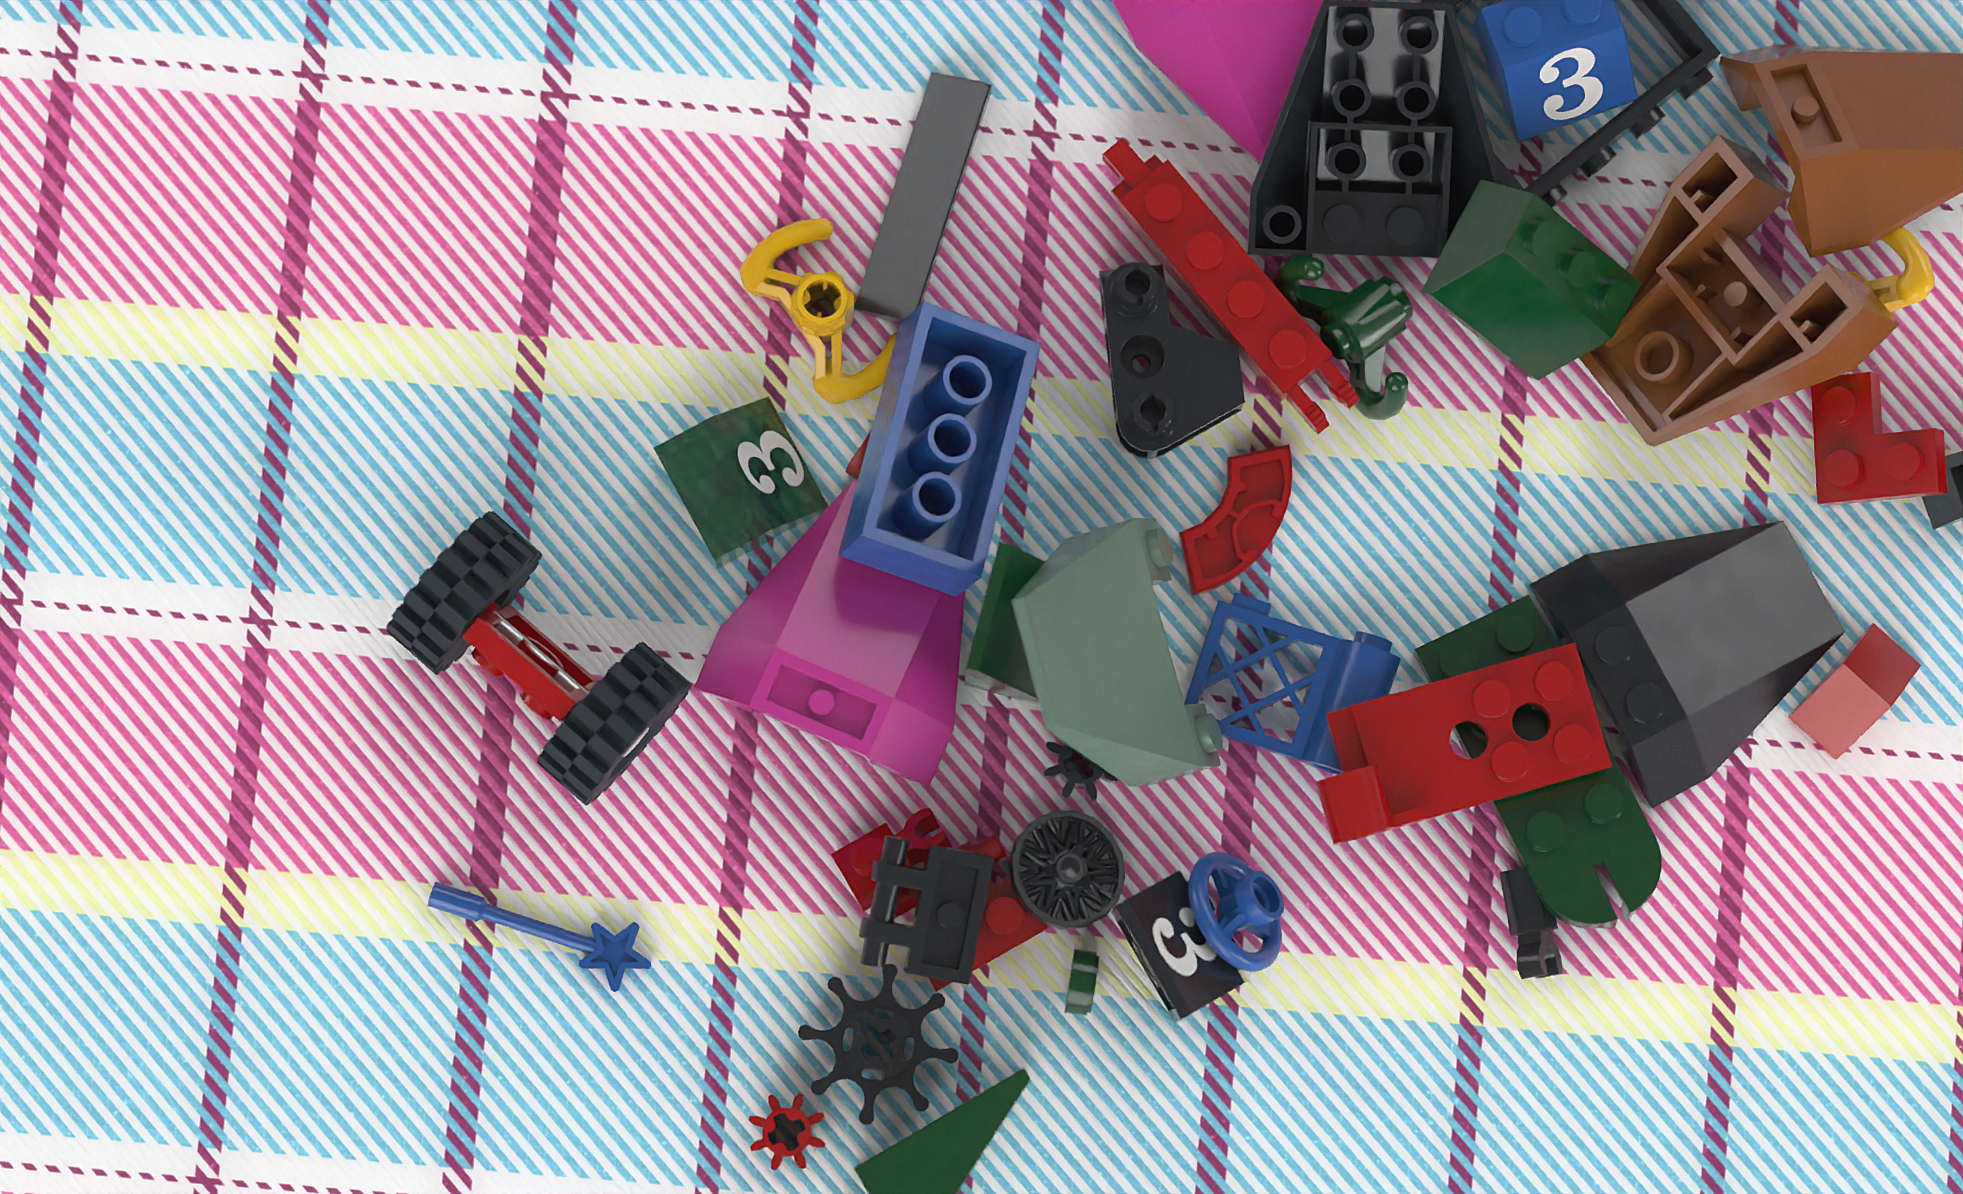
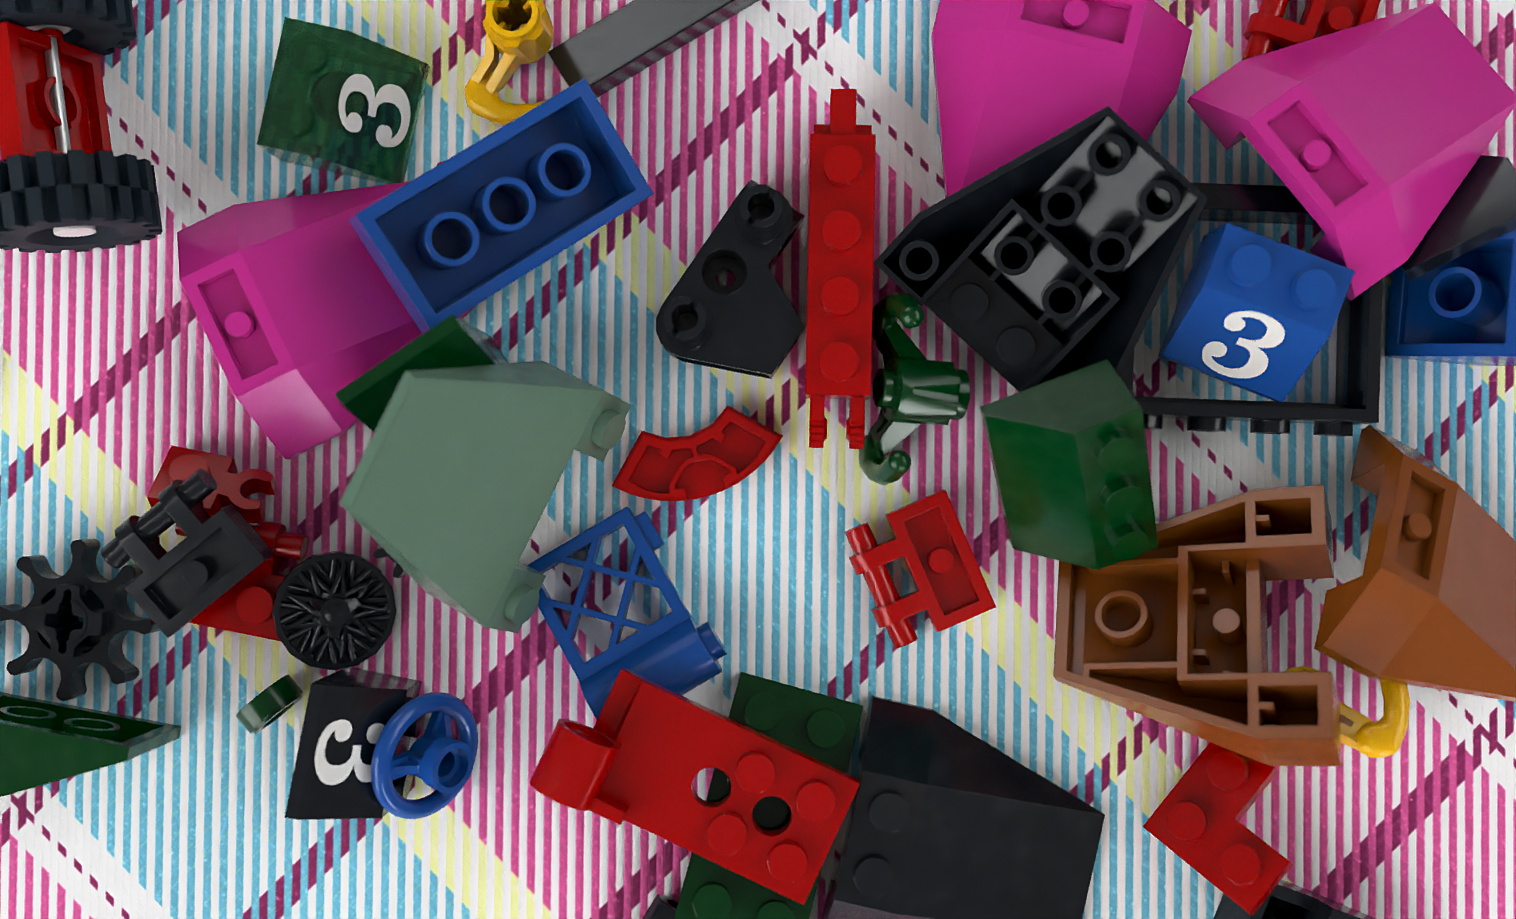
camera: 45 degrees right, 5 degrees up
(1489, 437) = (938, 561): none -> red plate

